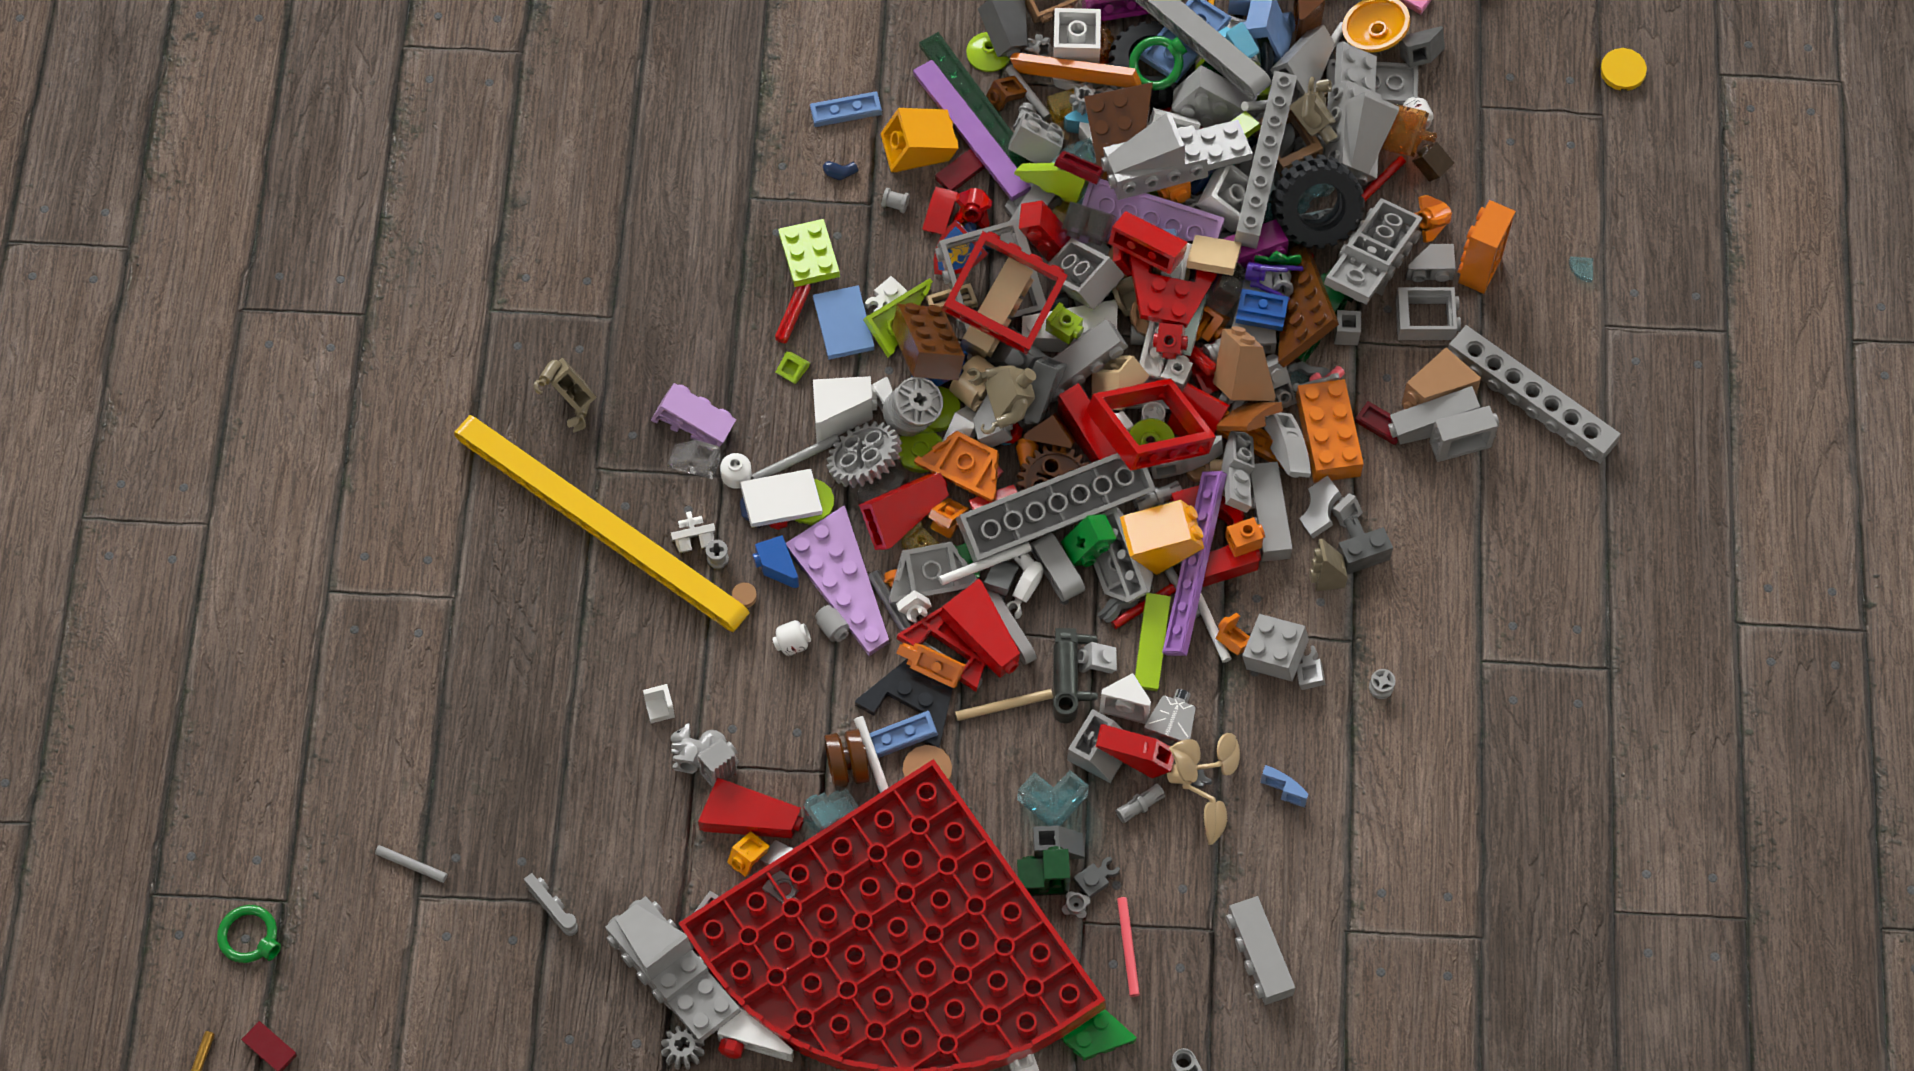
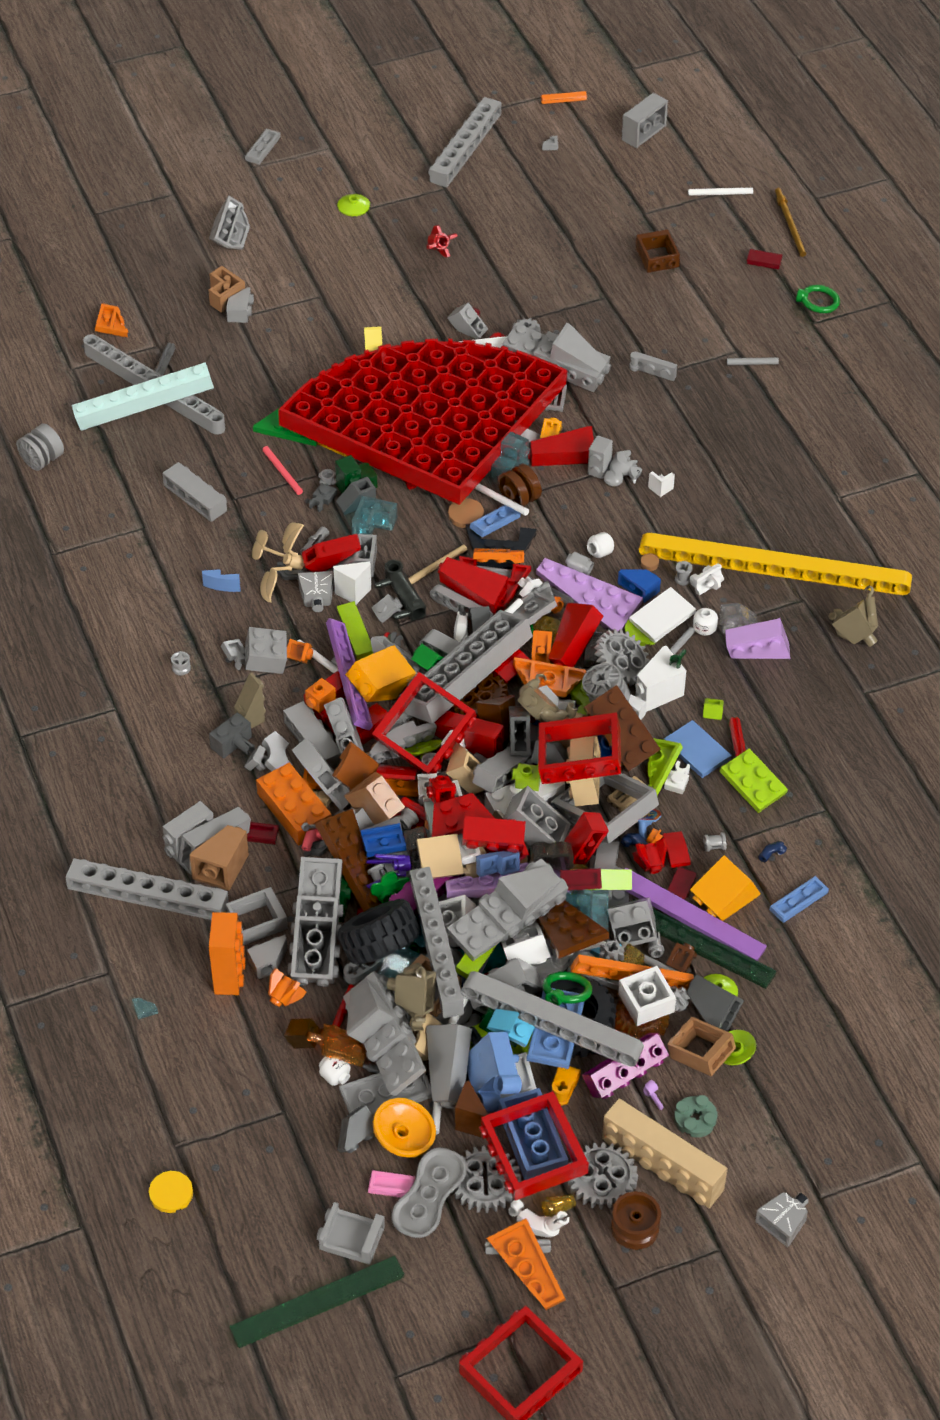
camera: 155 degrees right, 15 degrees down
(821, 393) = (677, 658): none -> dark green hand

